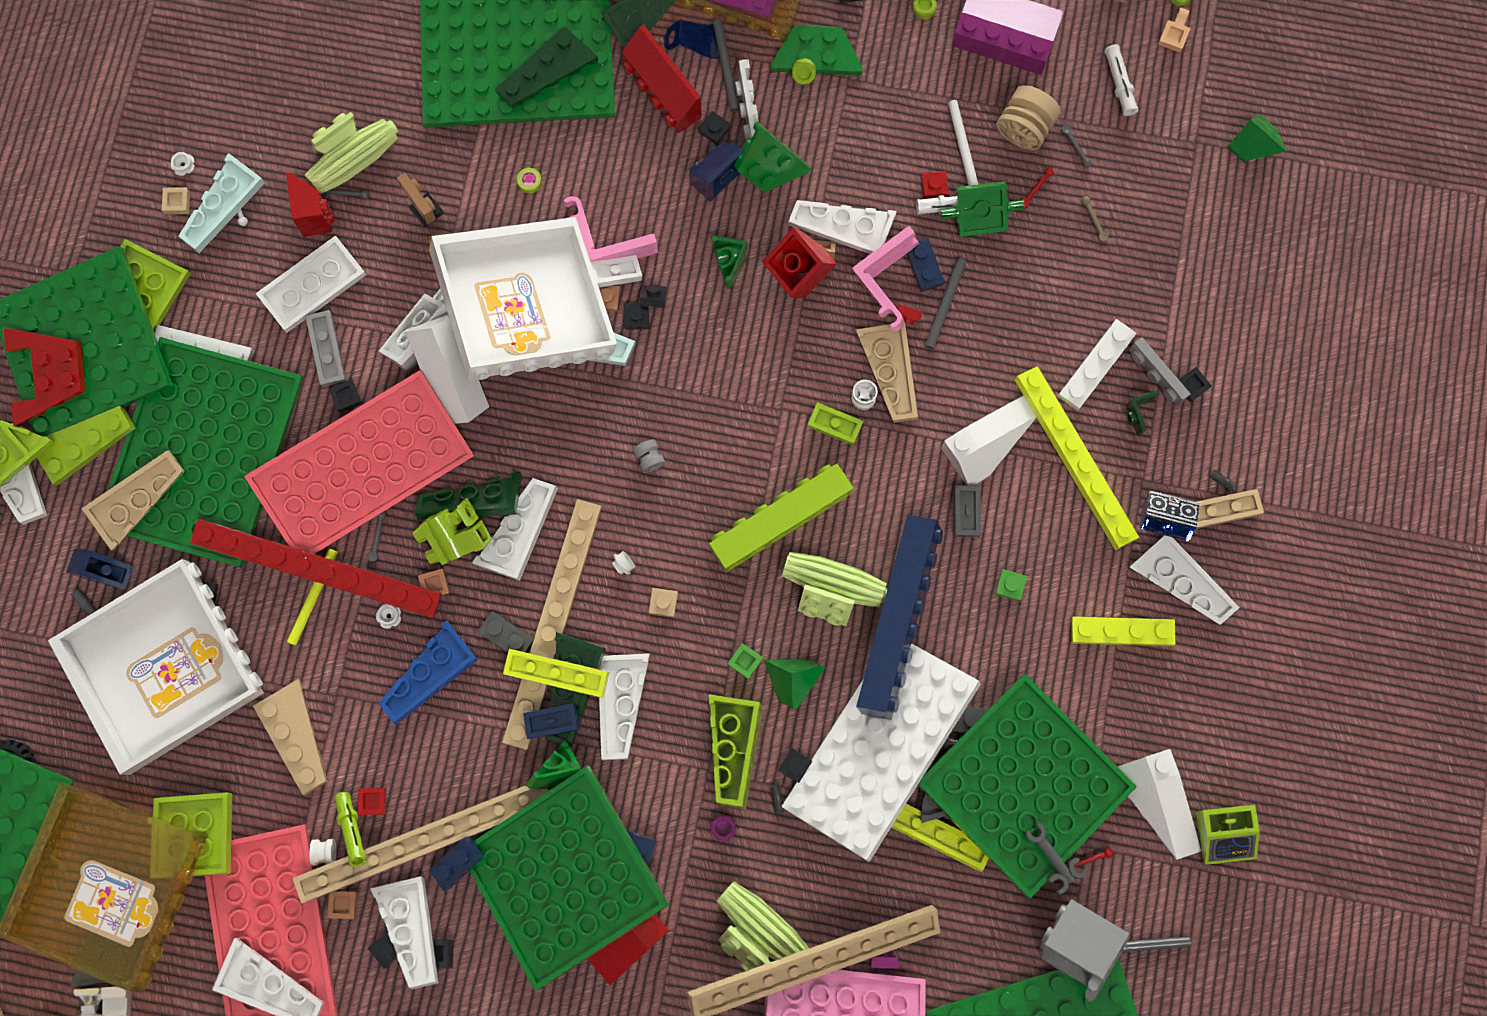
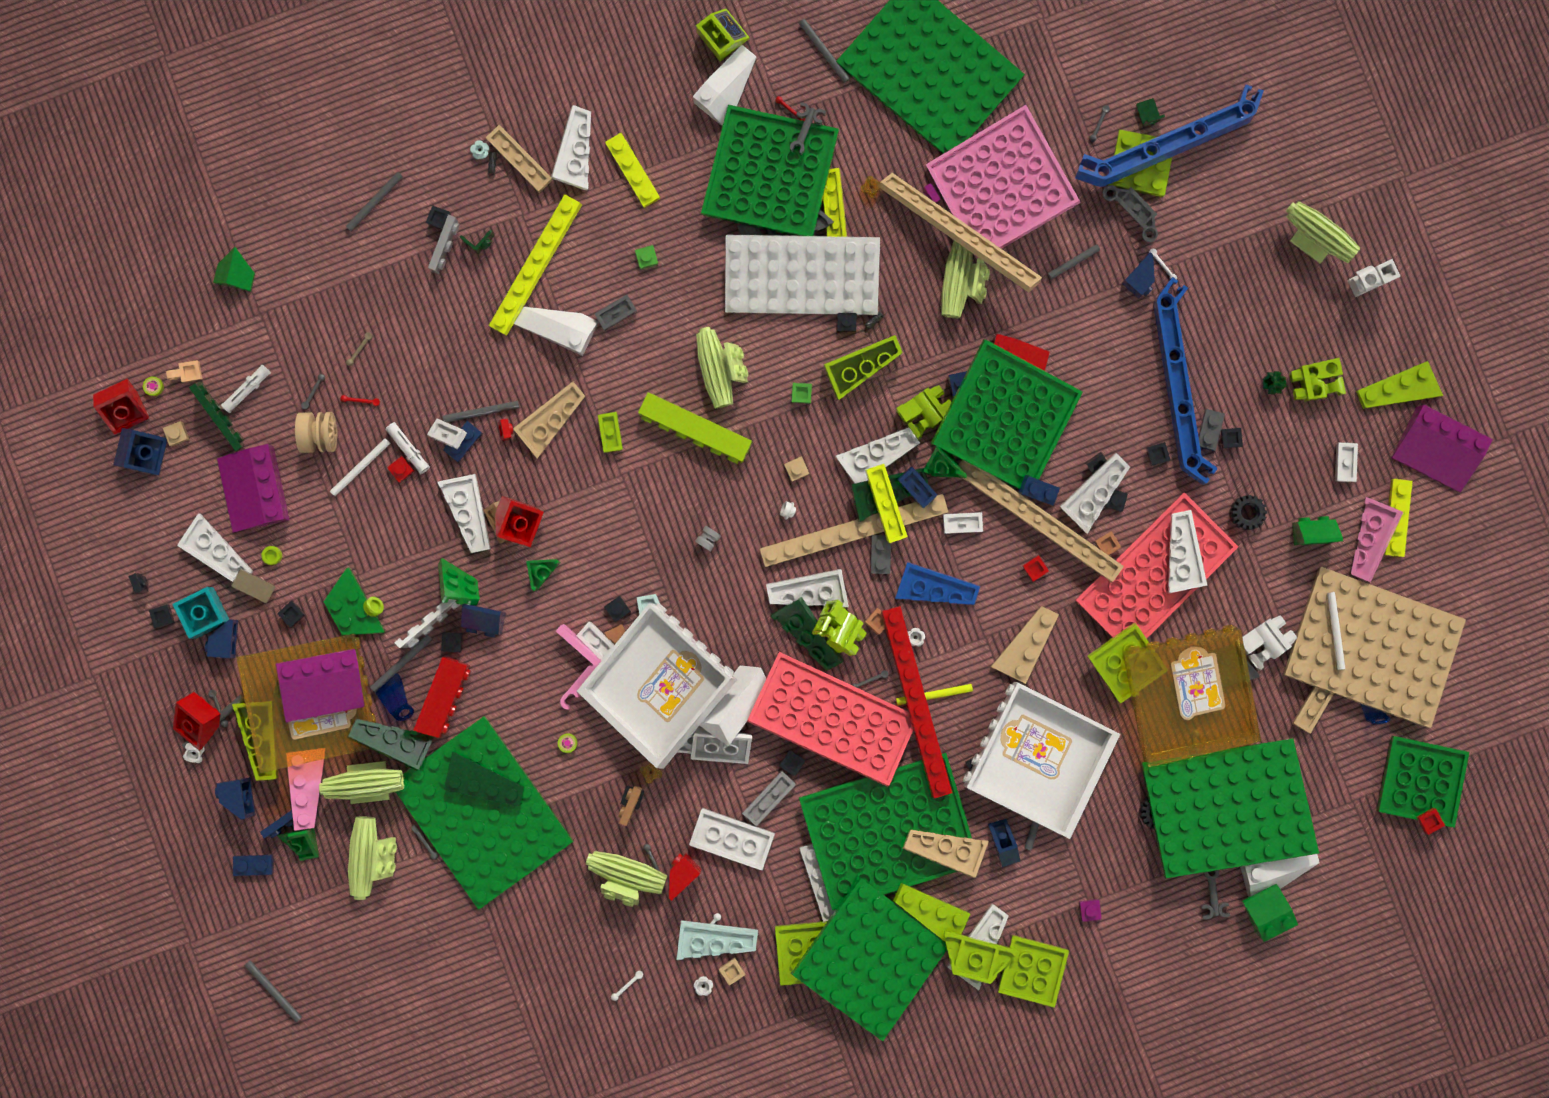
camera: 120 degrees left, 10 degrees up
(55, 369) = (897, 961): red wing -> none
(241, 108) = (639, 974): none -> white hinge
(322, 852) = (1084, 577): white wheel -> none
(347, 819) = (1055, 575): lime pin -> none
(478, 751) = (962, 523): none -> white plate
(635, 796) = (926, 405): none -> lime hips
(653, 296) = (597, 605): black plate -> none
(723, 828) = (913, 342): magenta tile -> none
(793, 679) = (793, 356): green slope -> none
(867, 391) = (577, 427): white wheel -> none
(878, 262) = (482, 471): bright pink hinge -> none
(899, 618) = (714, 311): dark blue brick -> none
(941, 889) = (866, 187): none -> clear yellow plate
(942, 250) = (447, 433): none -> white plate
(982, 209) = (401, 424): green plate -> none
(1083, 946) = (848, 79): light grey container -> none
(1097, 364) = (462, 288): white plate -> none
(1120, 32) = (214, 411): none -> dark green wing
(1169, 516) = (541, 180): brick -> none
(1240, 477) = (479, 154): none -> light aqua plate
(1253, 329) = (374, 201): none -> dark grey bar

